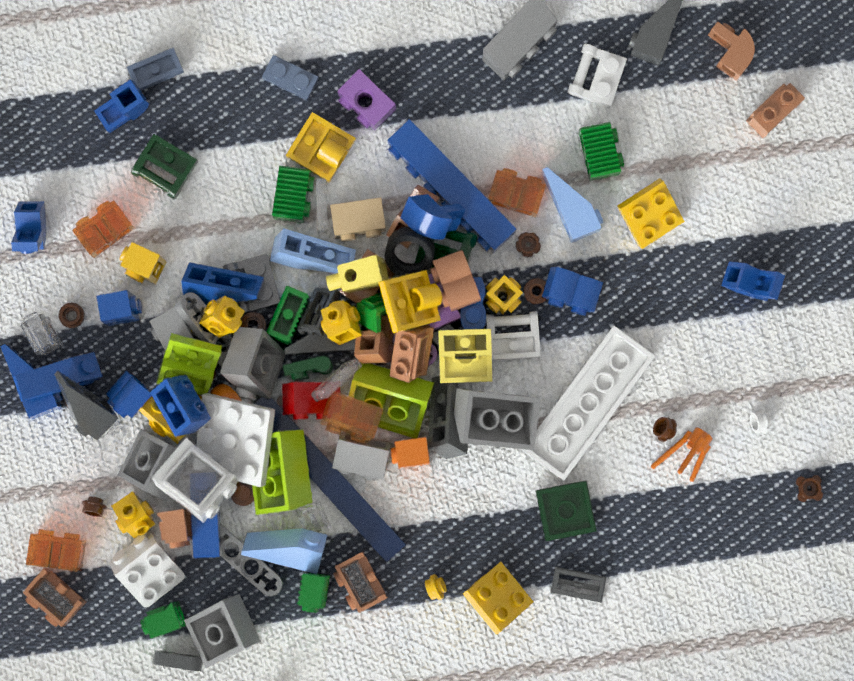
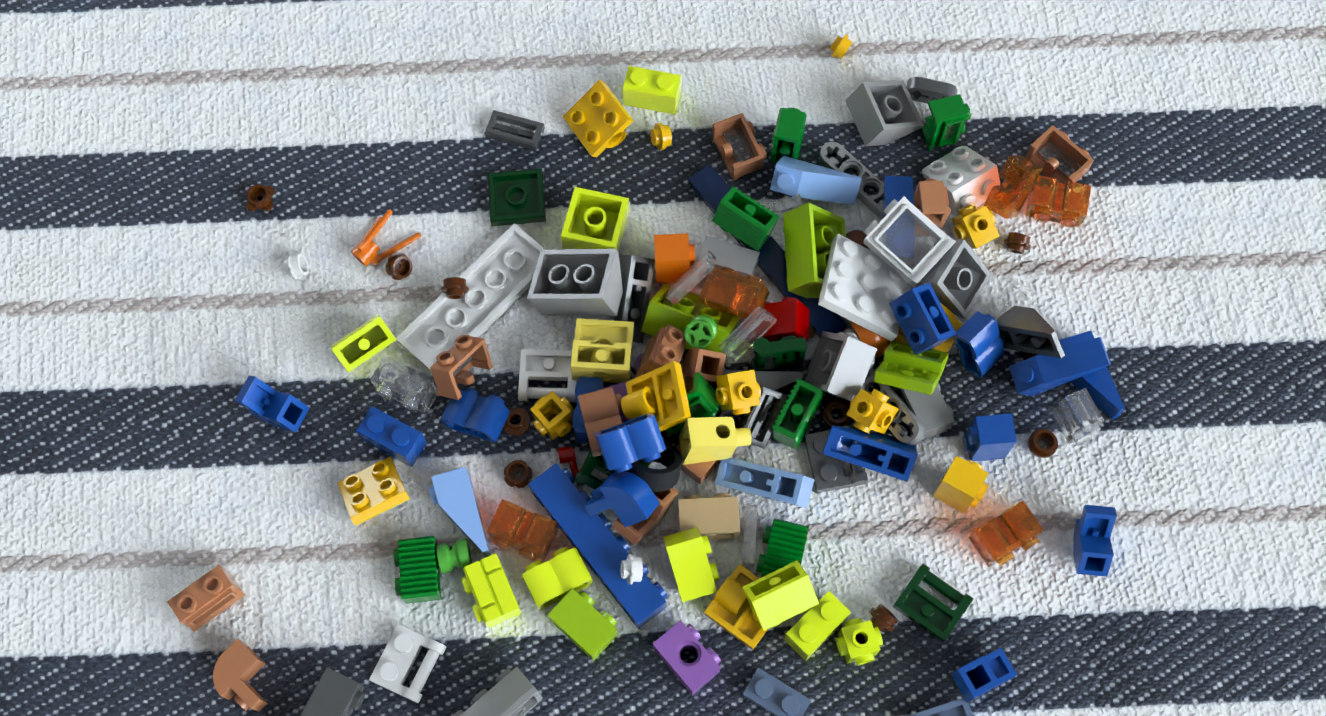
camera: 175 degrees left, 15 degrees down
(99, 554) = (1019, 179): none -> clear orange brick
(205, 147) = (883, 618): none -> reddish brown plate
(229, 133) = (851, 648): none -> neon yellow brick
(260, 135) = (817, 626): none -> neon yellow brick
(292, 149) = (780, 595): none -> neon yellow brick
(347, 497) = (745, 218): none -> green brick
(370, 173) = (690, 563): none -> neon yellow brick
(378, 375) = (697, 337): none -> bright green wheel
(391, 430) = (691, 277): none -> clear tile
(418, 159) = (632, 569): none -> white plate
(429, 256) = (630, 442): none -> blue brick
(449, 635) = (652, 90): none -> neon yellow brick
(455, 119) = (583, 623): none -> lime brick
(482, 155) = (555, 578): none -> neon yellow brick
(486, 265) = (567, 455): none -> red hand
(487, 484) = (595, 220): none -> neon yellow brick
(536, 139) = (491, 591): none -> neon yellow brick
(572, 165) = (453, 556): none -> bright green wheel
(595, 330) = (454, 364): none -> nougat window
(608, 405) = (454, 287): none -> reddish brown plate
(639, 312) = (404, 384): none -> clear brick
(643, 264) = (391, 436): none -> blue brick
(683, 346) = (363, 343): none -> neon yellow brick

